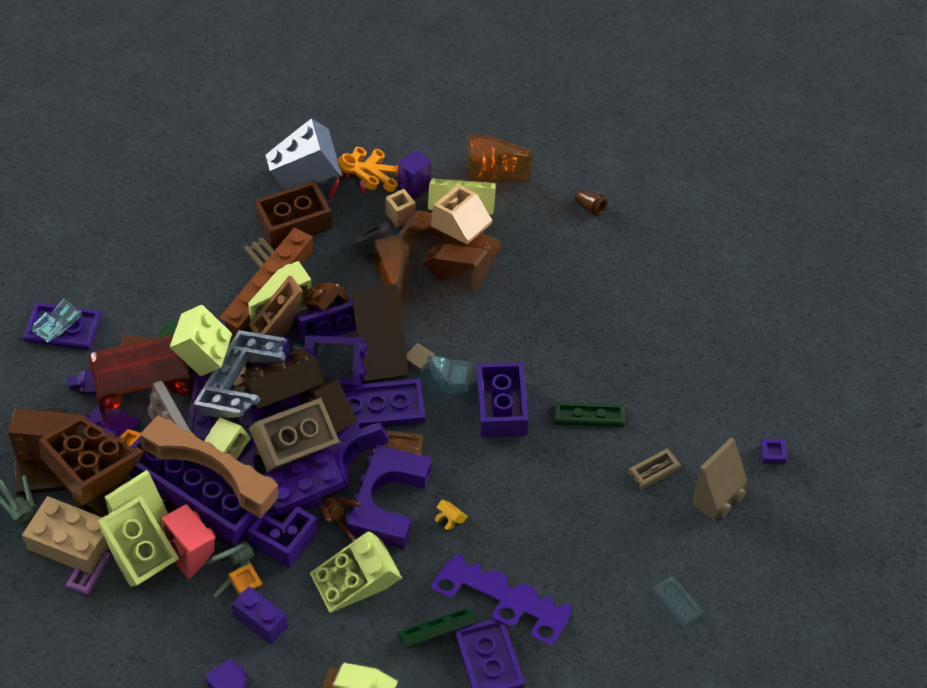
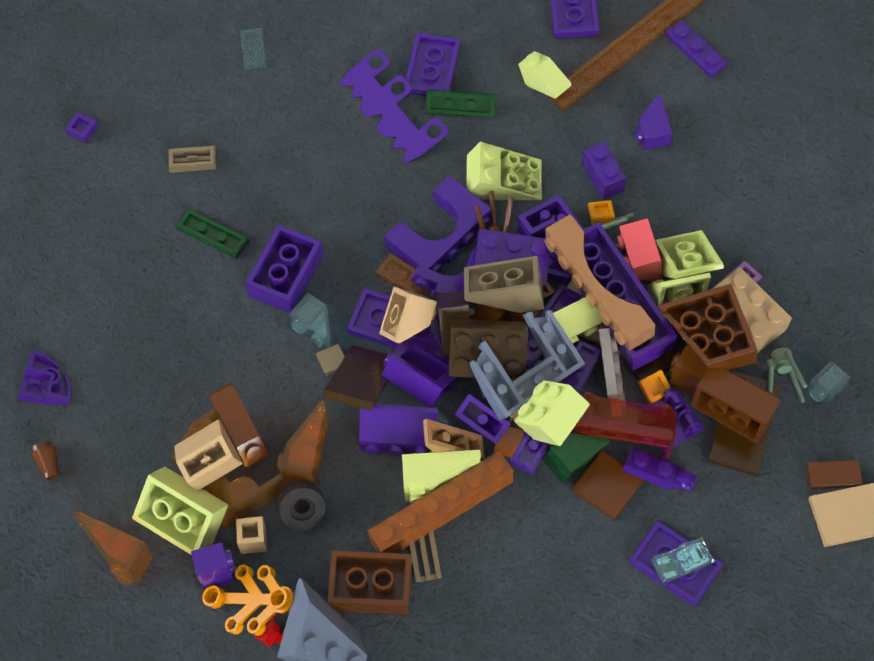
camera: 150 degrees left, 10 degrees up
(323, 294) = (396, 434): reddish brown bracket -> none
(367, 387) = (407, 315): none -> tan slope
(451, 512) = (393, 191): yellow tile -> none
(637, 250) = (43, 374): none -> dark purple brick
(720, 482) = (154, 105): dark tan slope -> none

